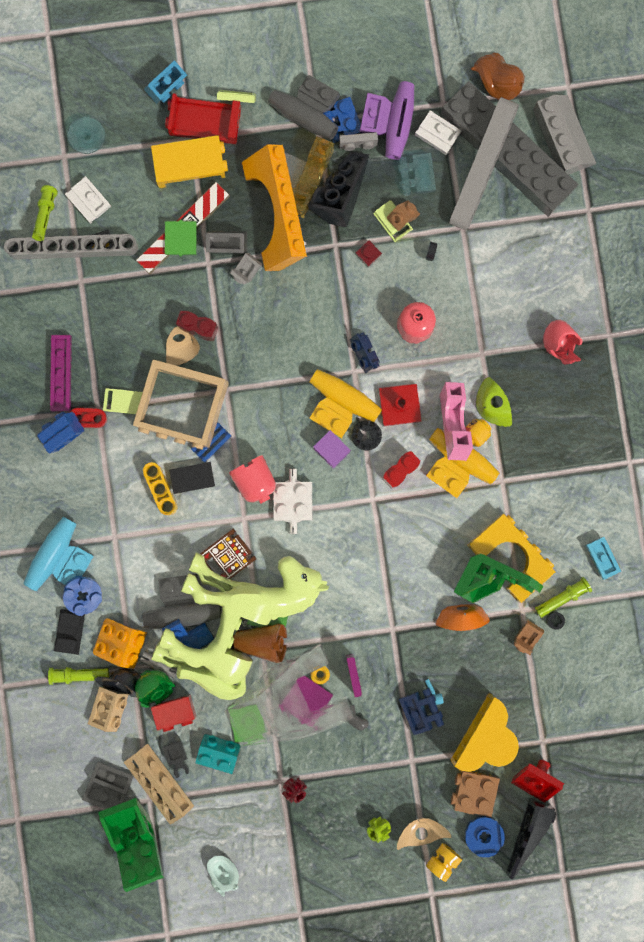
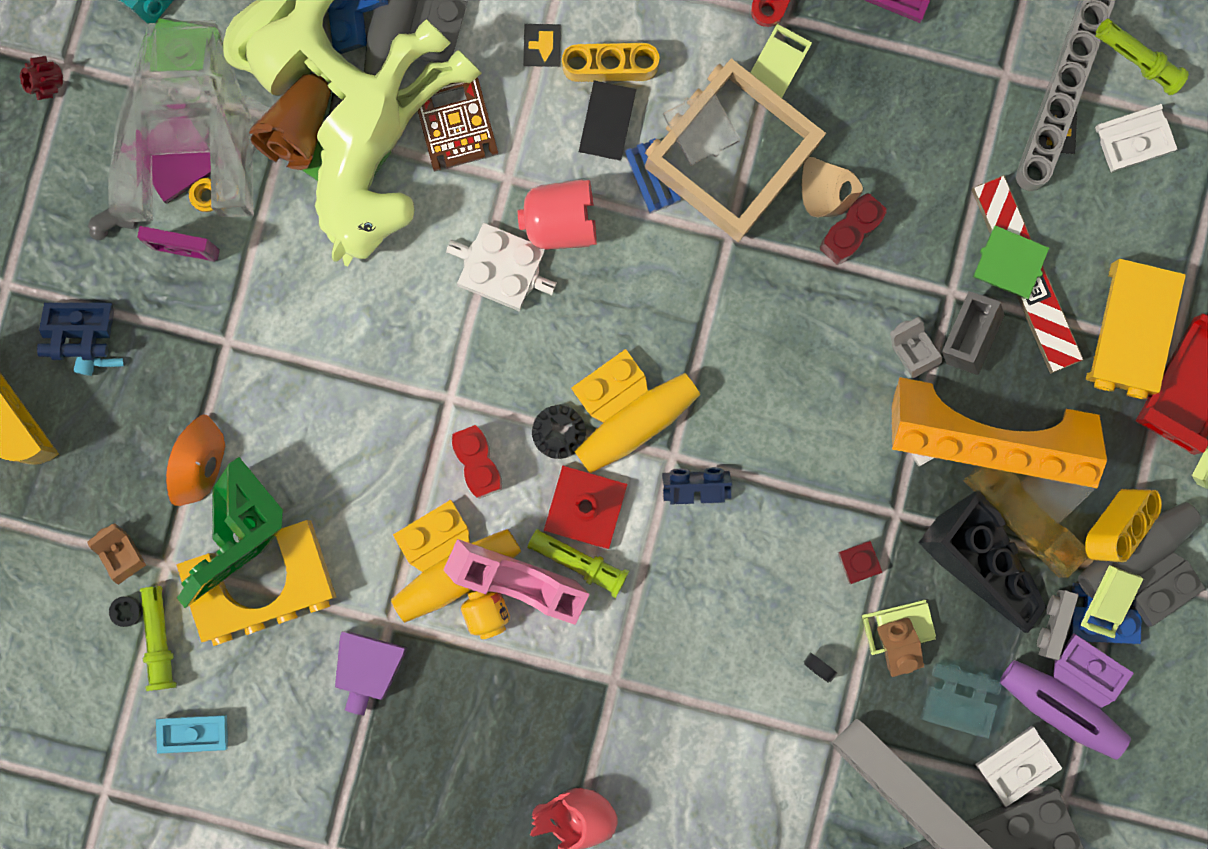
camera: 115 degrees right, 0 degrees up
(165, 530) = (542, 45): none -> black sticker
(176, 424) = (701, 127): none -> clear piece
(294, 126) = (1123, 525): none -> yellow beam
(331, 449) = (558, 363): medium lavender piece -> none
(335, 117) = (1112, 599): none -> yellowish green piece
(413, 330) = (692, 589): coral cylinder -> none
(430, 386) = (592, 569): none -> lime pin
(498, 416) = (547, 662): lime piece -> none
(531, 481) = (366, 668): none -> medium lavender torso

